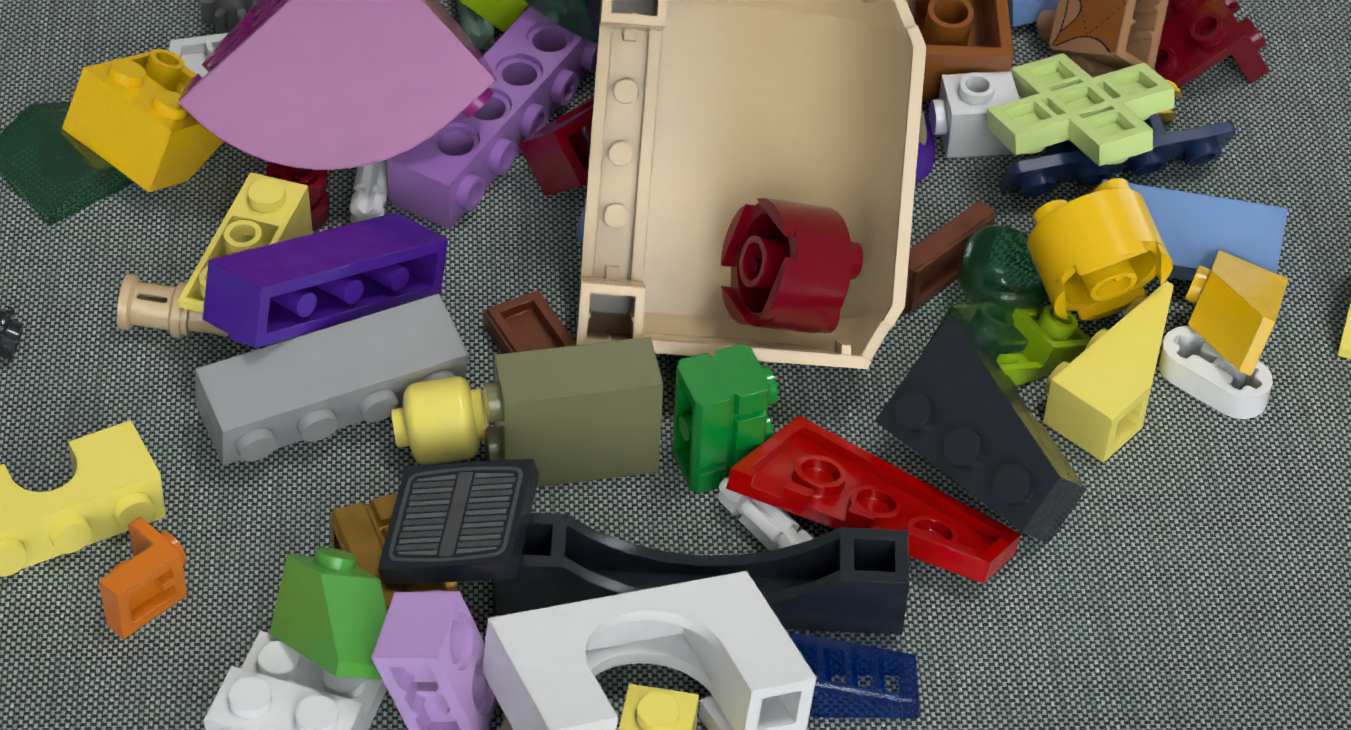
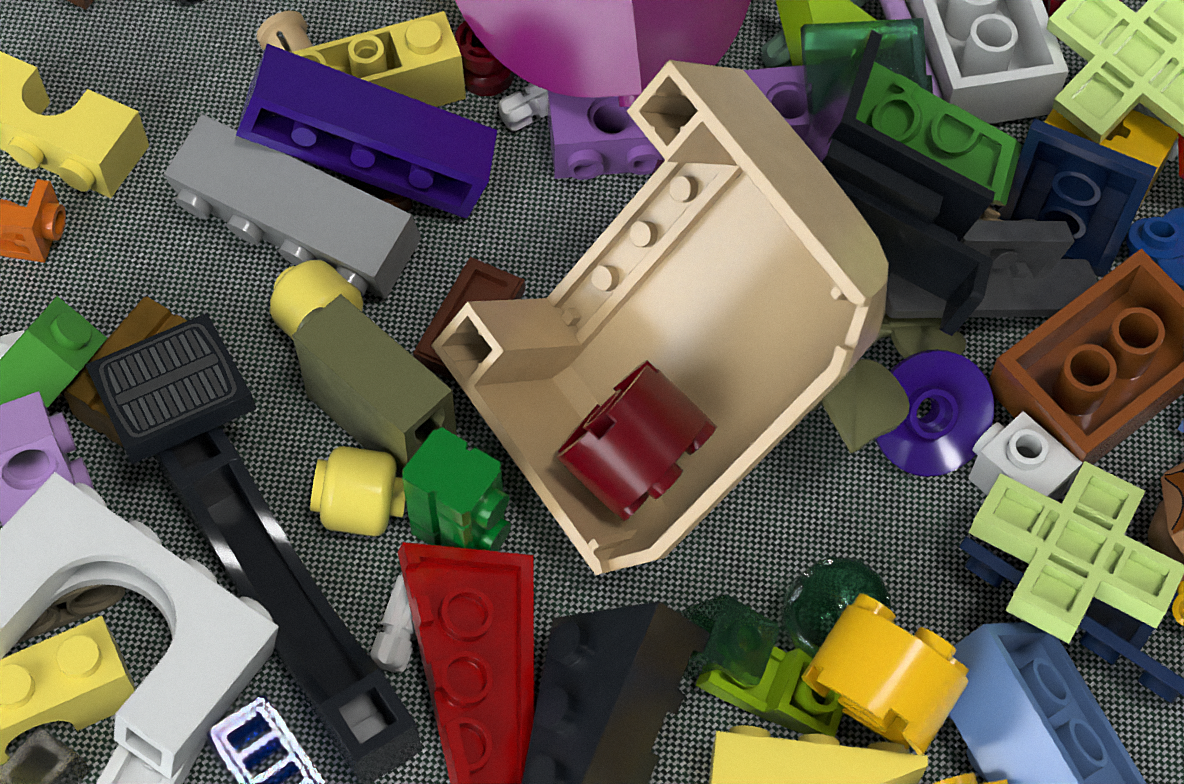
camera: 55 degrees right, 15 degrees up
(644, 486) = (357, 491): none -> light yellow head
(937, 257) = (800, 545): copper tile -> none

